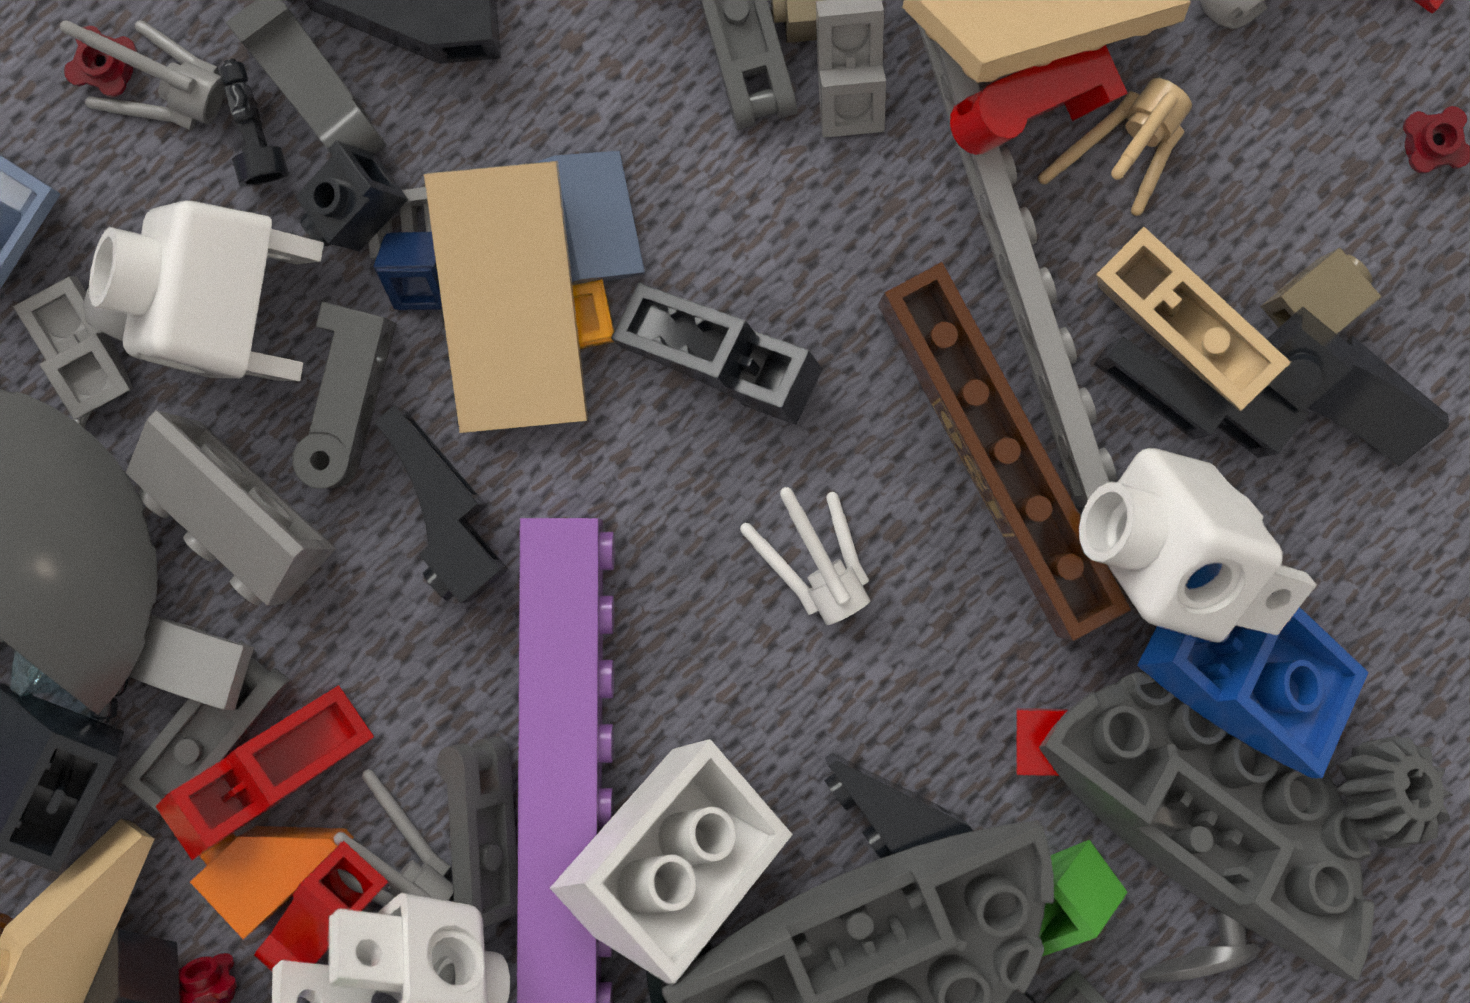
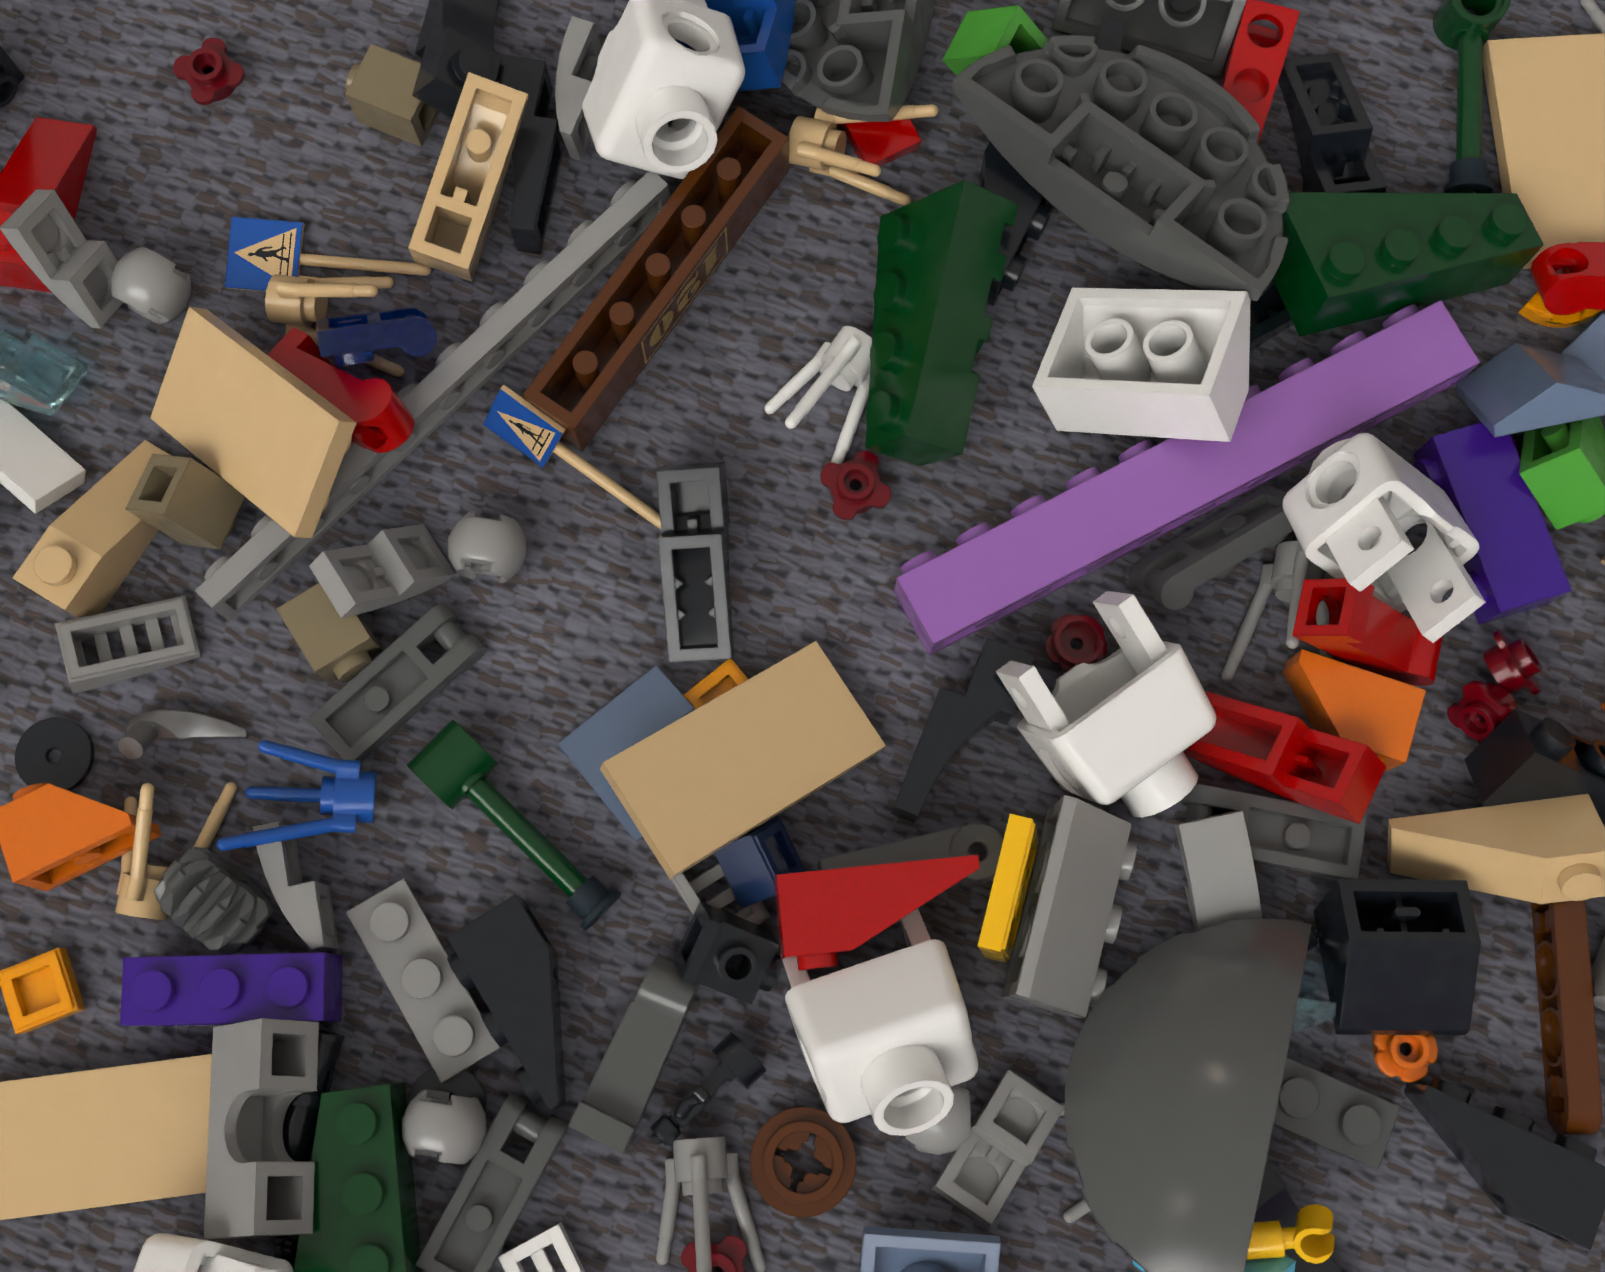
camera: 115 degrees left, 10 degrees down
(123, 178) = (773, 1174): none -> reddish brown gear
(264, 463) = (1009, 889): none -> yellow tile
(318, 318) = (847, 906): none -> red slope
(363, 646) = (1118, 721): none -> white piece
(448, 658) = (1076, 627): none -> dark red plate
(639, 48) = (458, 769): none -> dark green piece
(704, 519) = (851, 502): none -> dark red plate
(825, 171) = (487, 547): none -> light grey piece
(827, 681) = (931, 319): none -> dark green wedge
(898, 270) = (539, 437): none -> piece
(1059, 676) = (822, 148): none -> tan plant
(1081, 138) = (357, 335): none -> clear blue plate
(1221, 116) = (275, 247): none -> piece
(1259, 481) = (573, 78): none -> light grey slope

